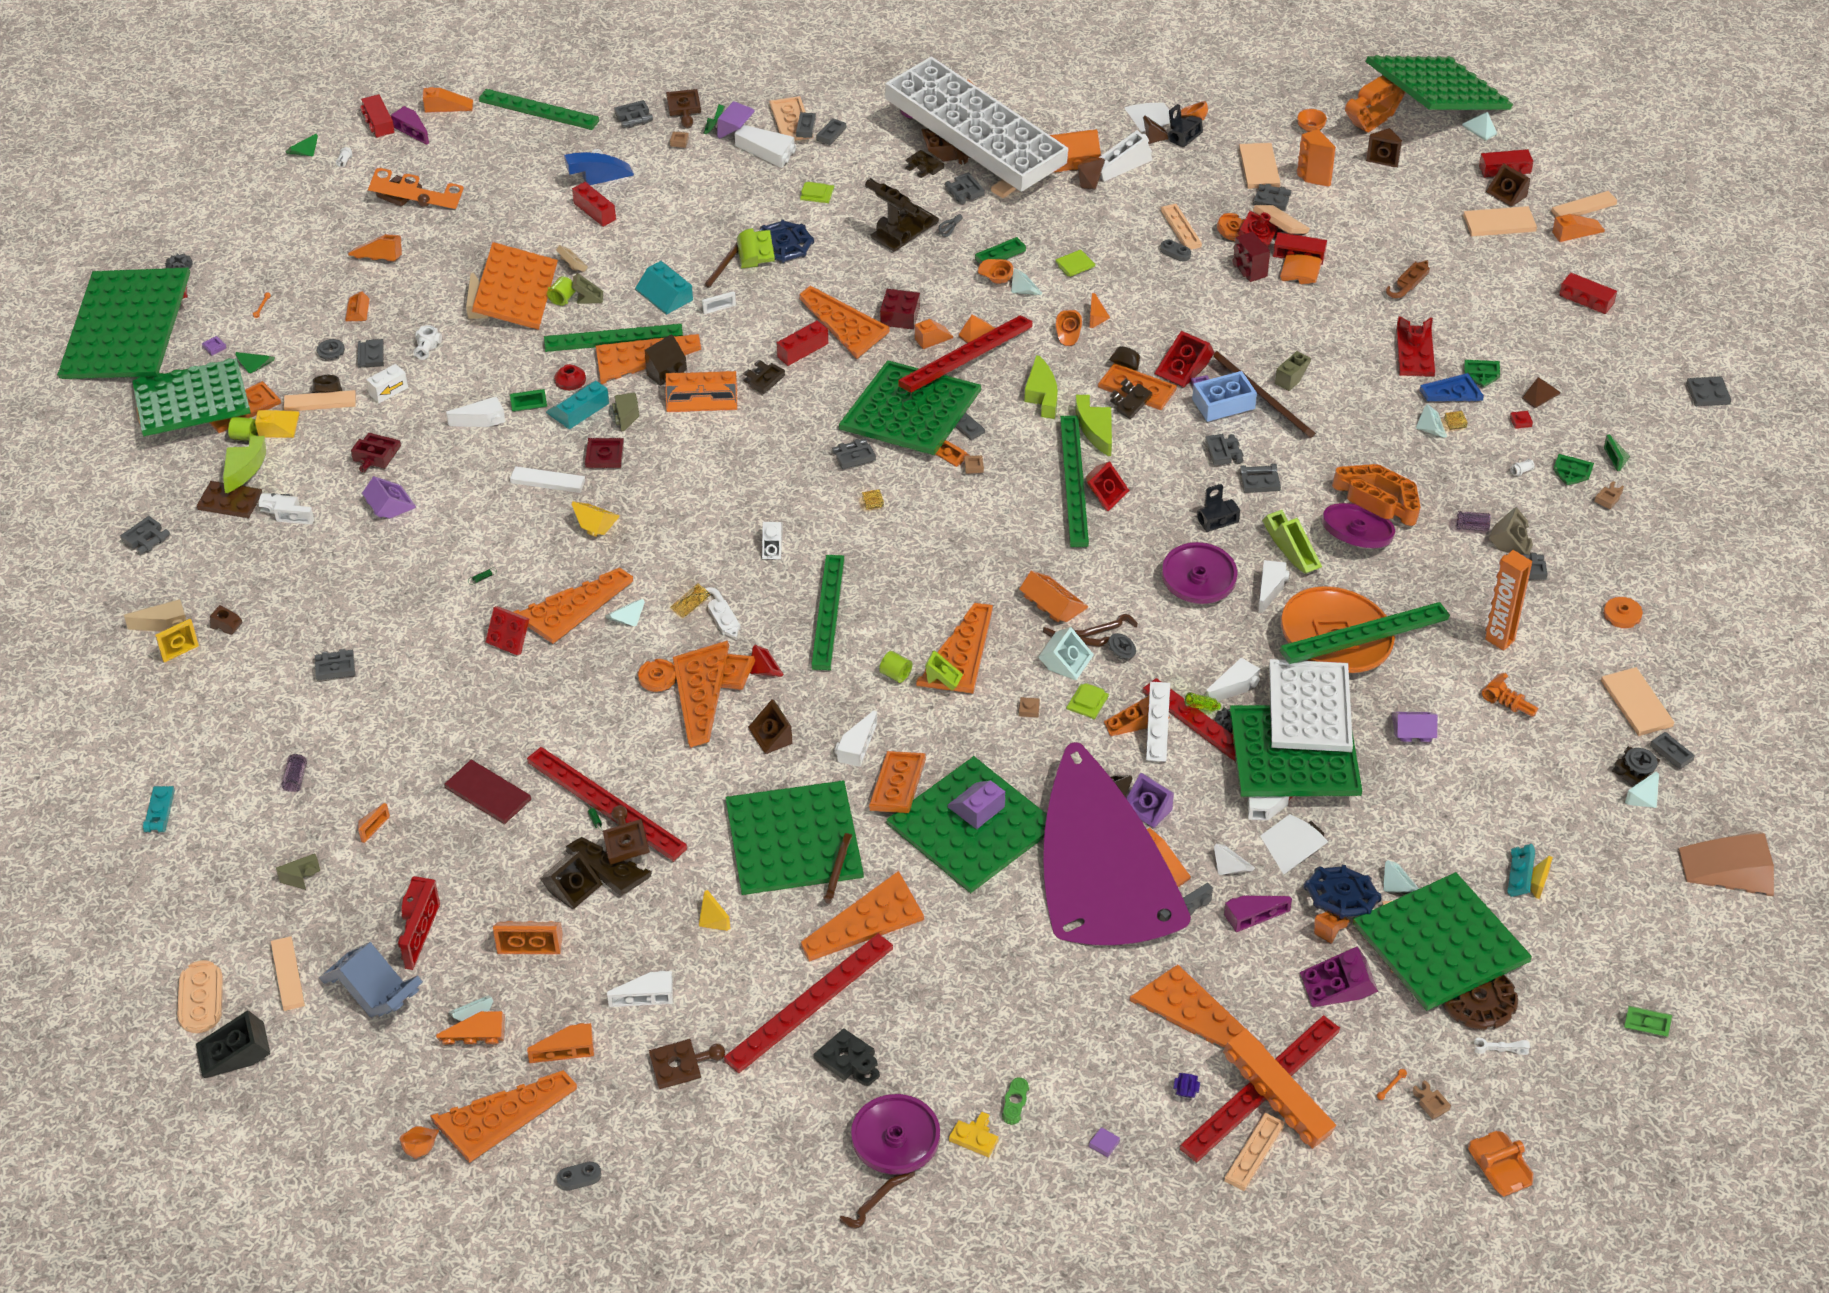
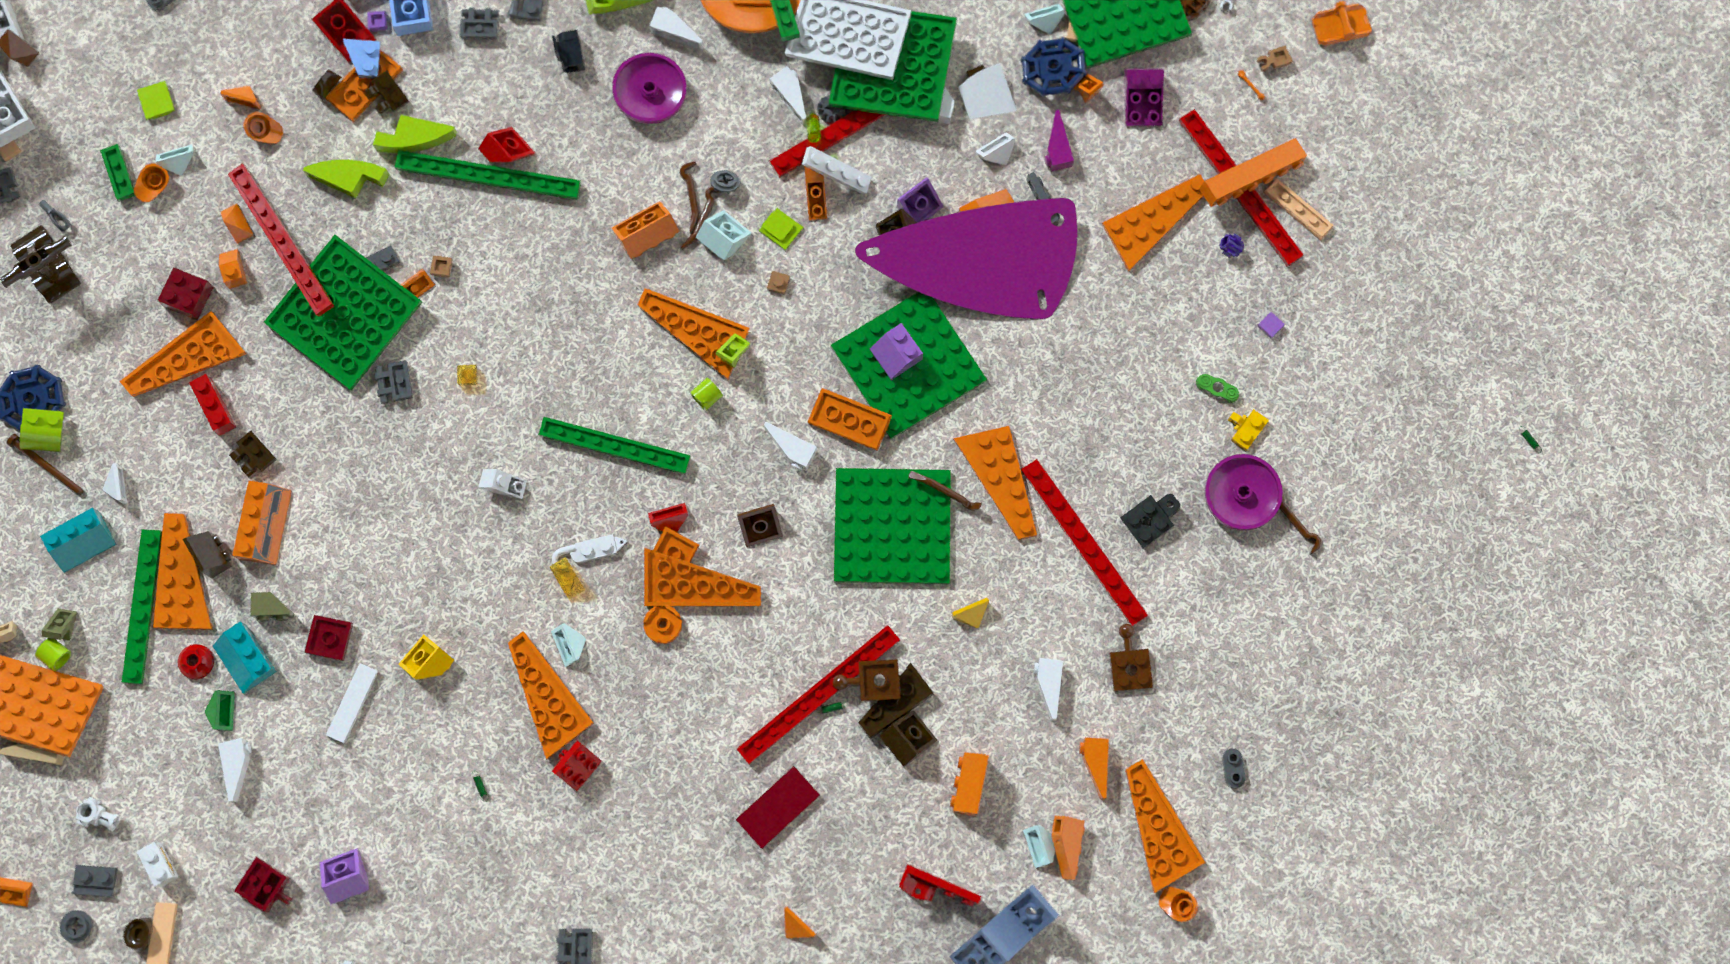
camera: 80 degrees left, 30 degrees up
(1160, 377) = (364, 57): none -> light blue wing

